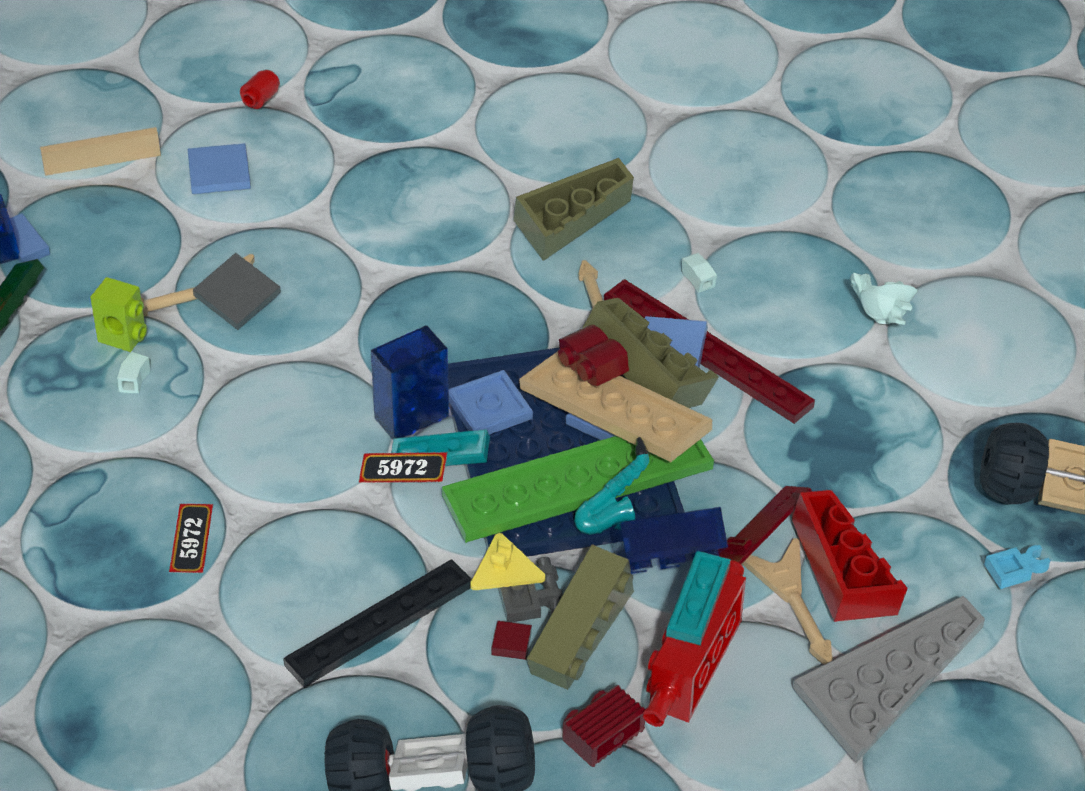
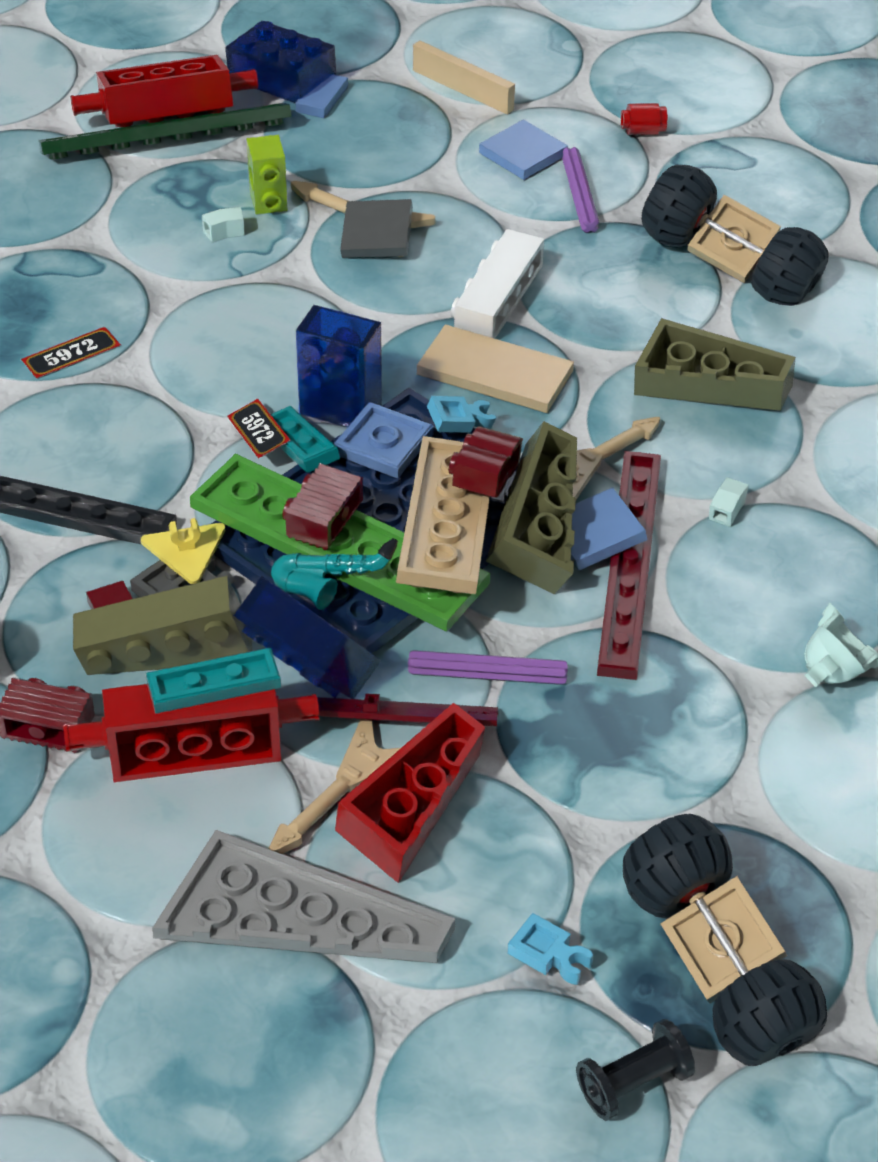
camera: 55 degrees right, 0 degrees up
(299, 165) = (580, 189): none -> medium lavender axle
(371, 262) = (498, 284): none -> white brick
(405, 122) = (733, 236): none -> black plate
(456, 308) = (495, 368): none -> tan tile
(505, 352) = (455, 415): none -> medium azure plate
(558, 462) = (323, 506): none -> brick
(749, 469) = (487, 667): none -> medium lavender axle

